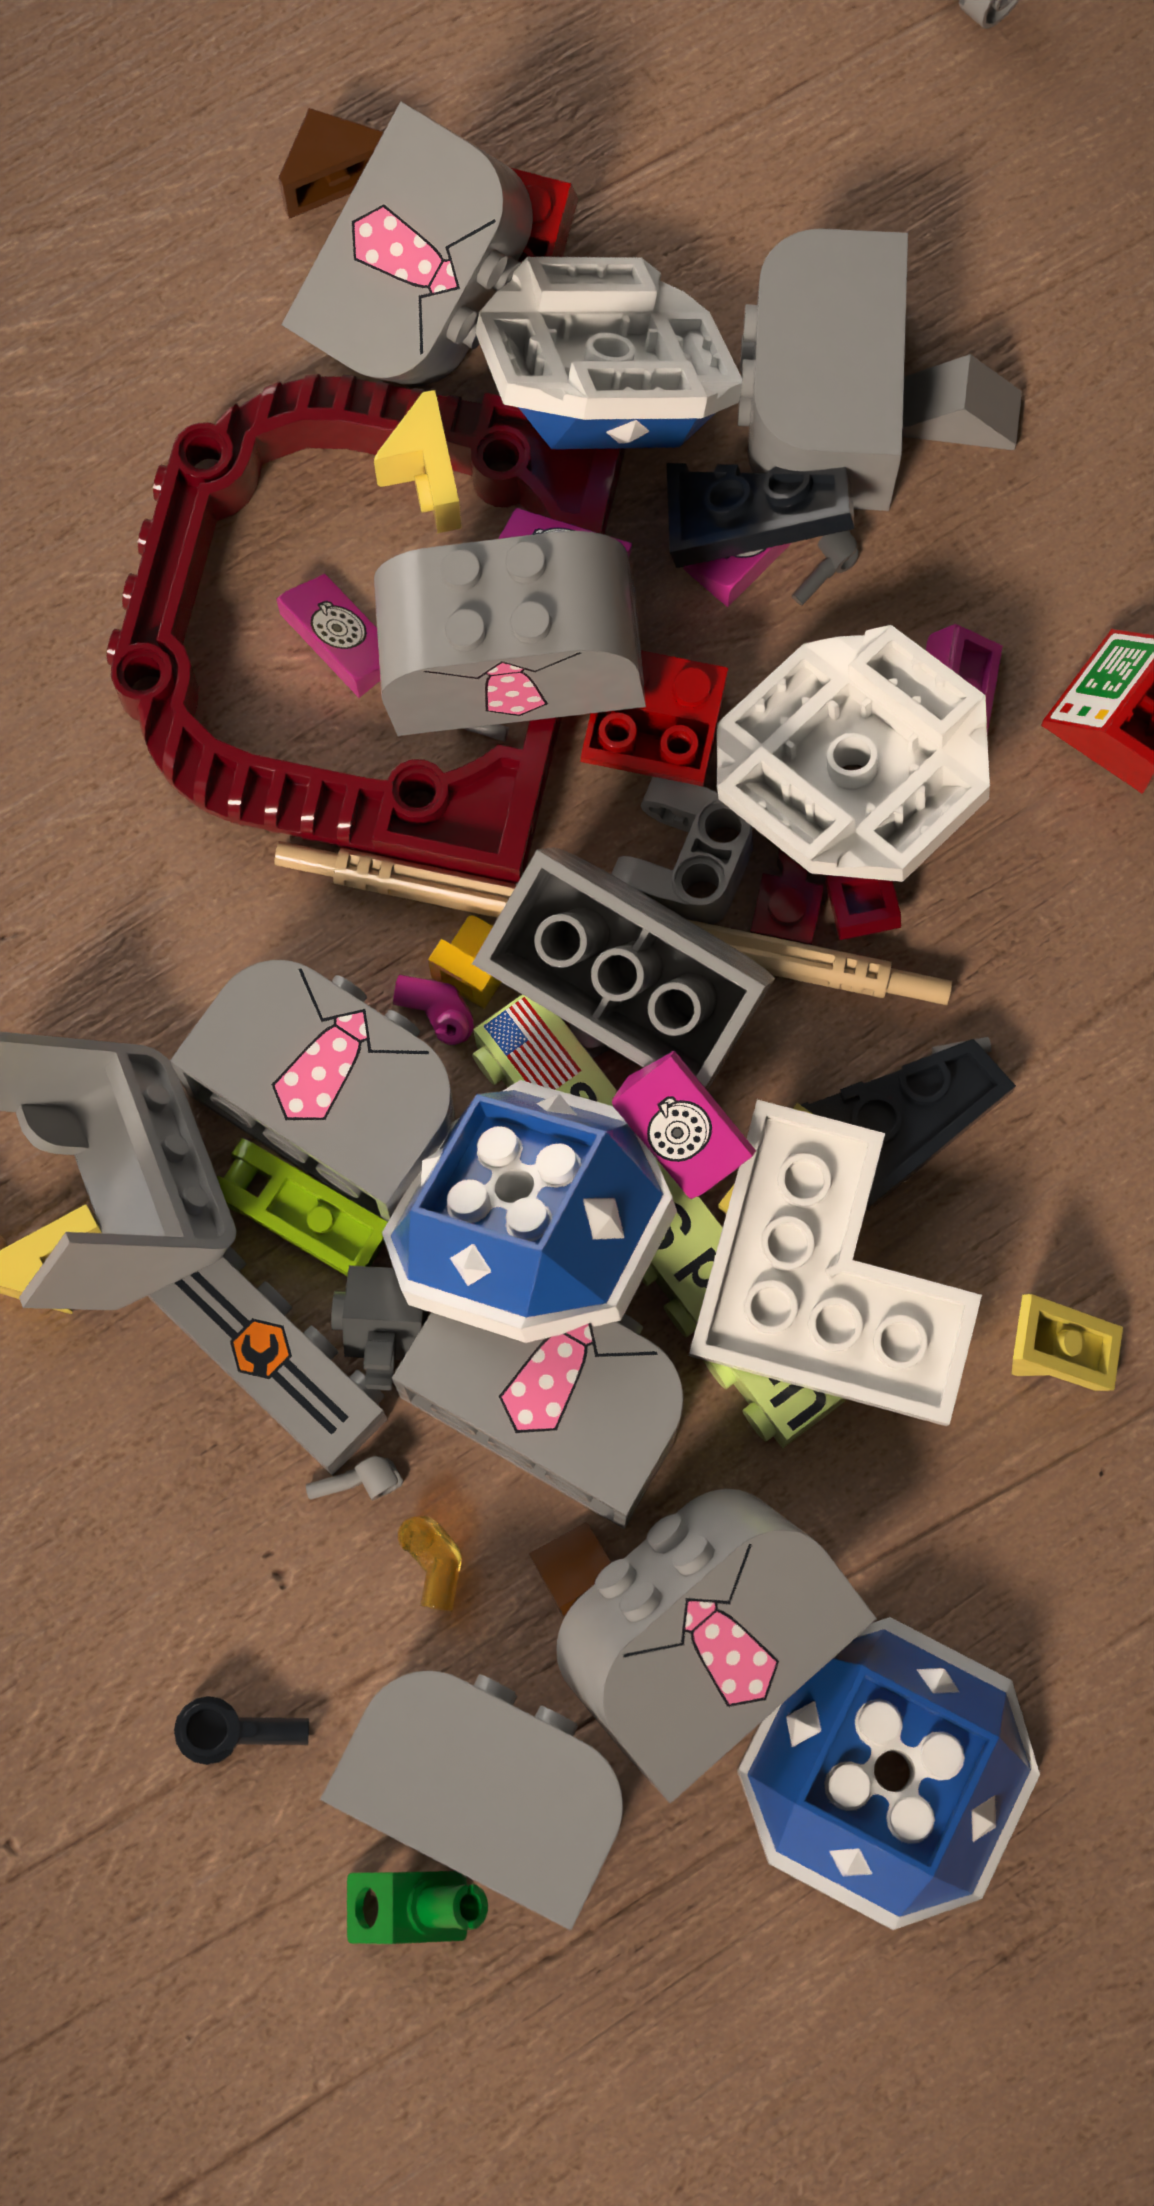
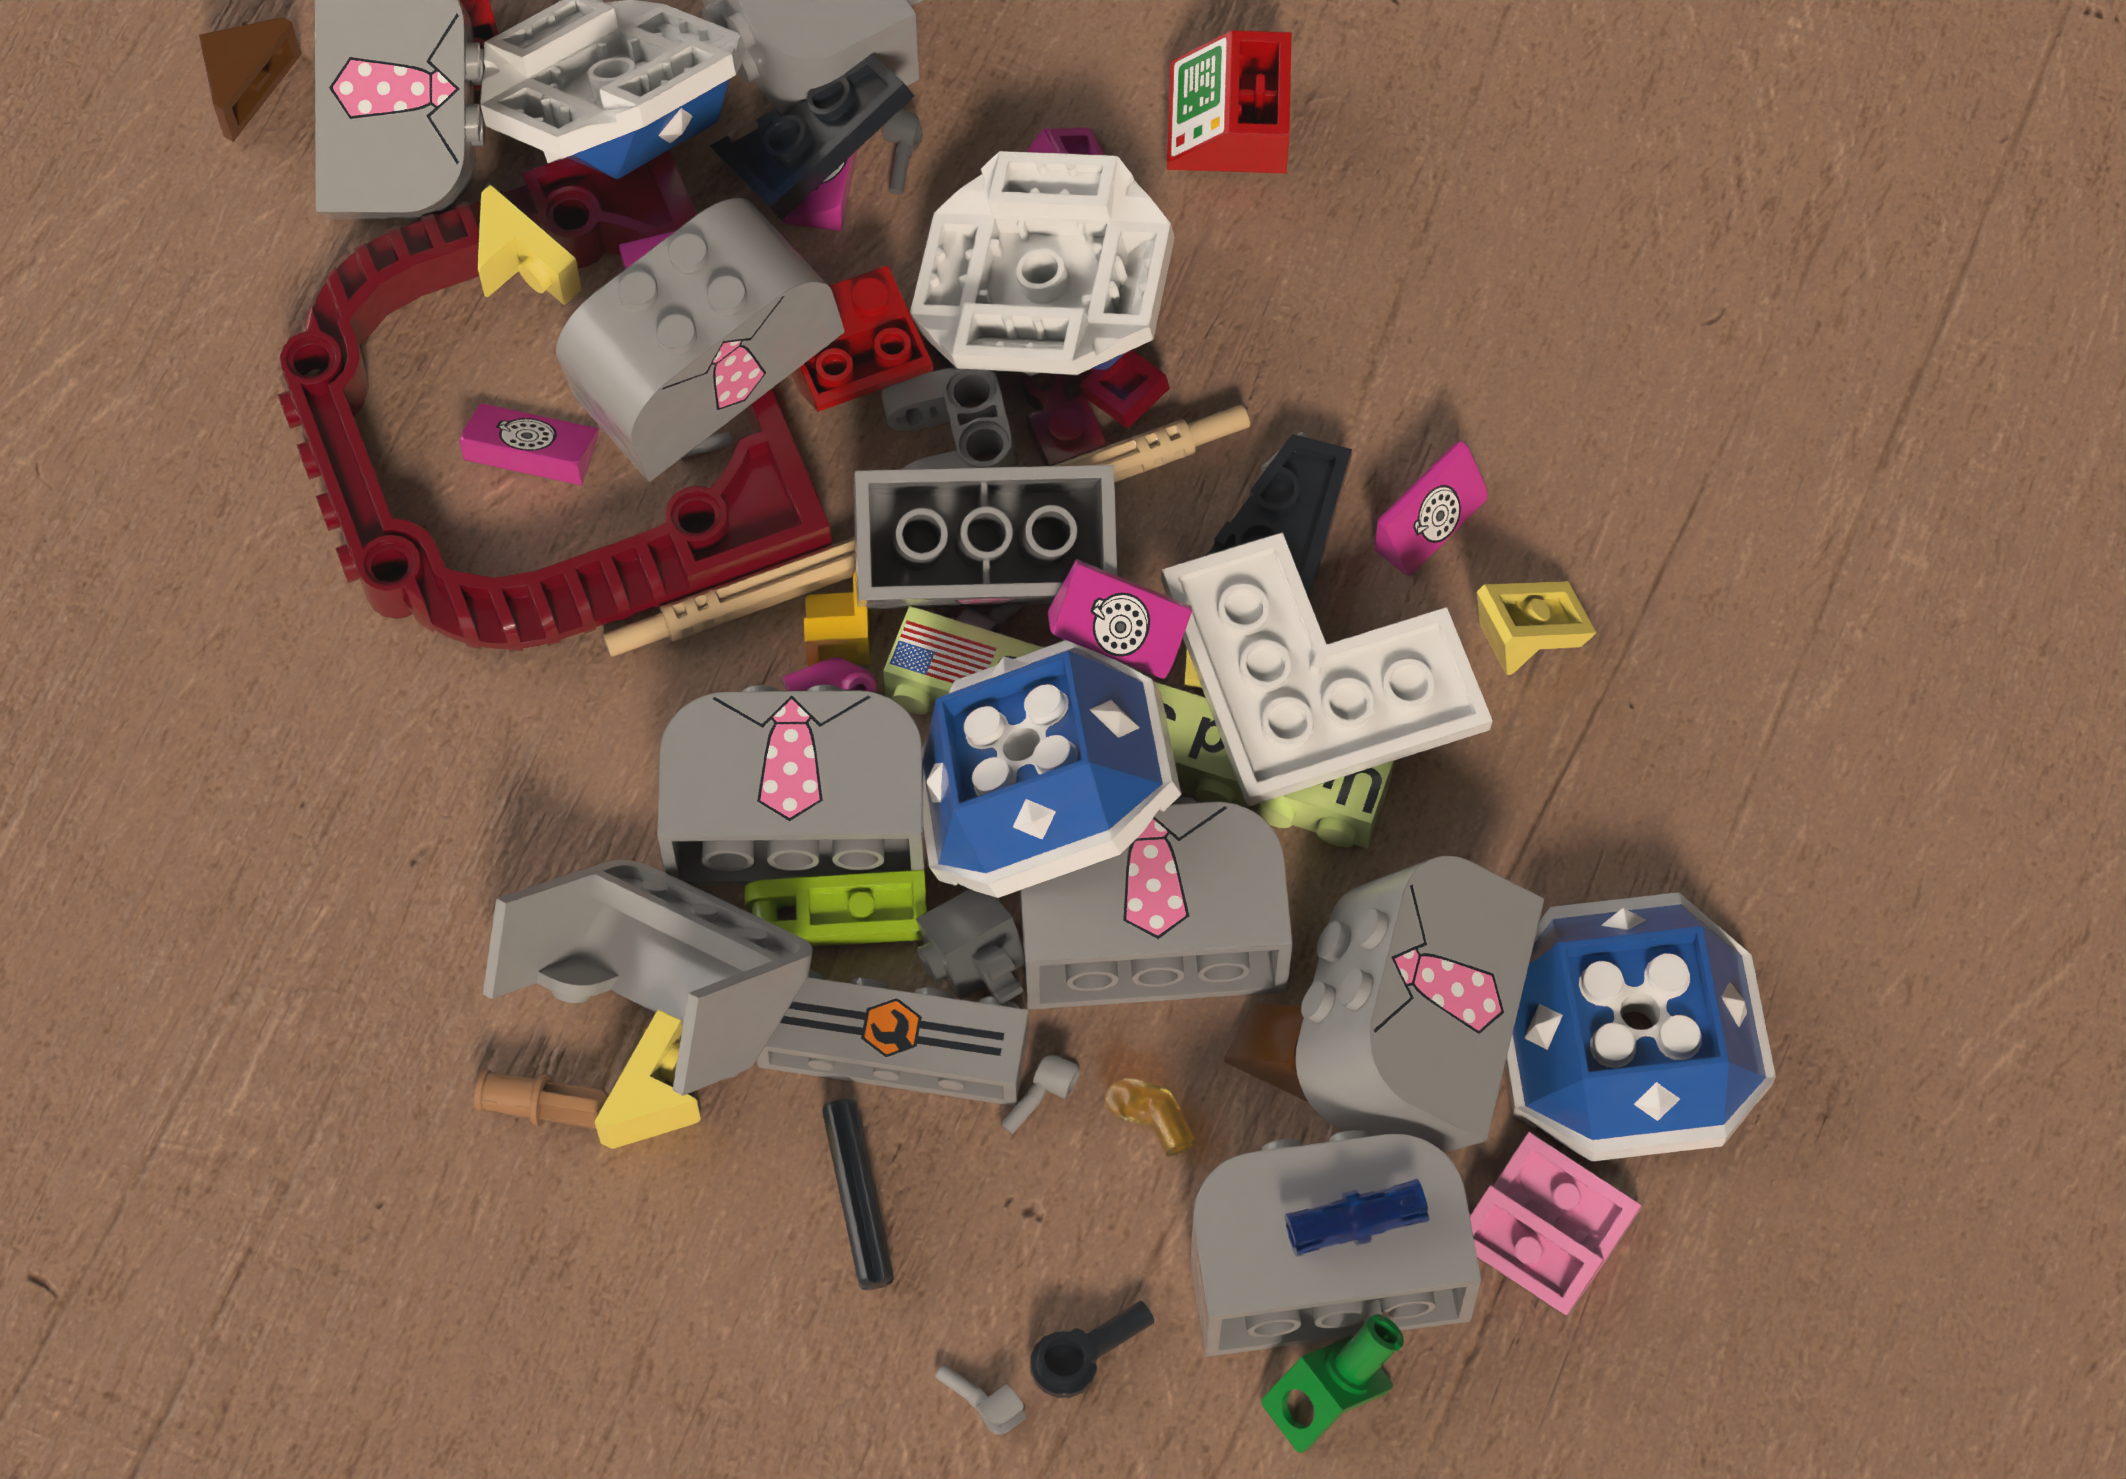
camera: 35 degrees left, 10 degrees down
(128, 1733) = (999, 1411): none -> light grey hand
(147, 1466) = (858, 1194): none -> black axle
(499, 1804) = (1356, 1217): none -> clear blue pin
(694, 1891) = (1550, 1223): none -> bright pink slope
(1049, 1184) = (1431, 510): none -> dark pink slope

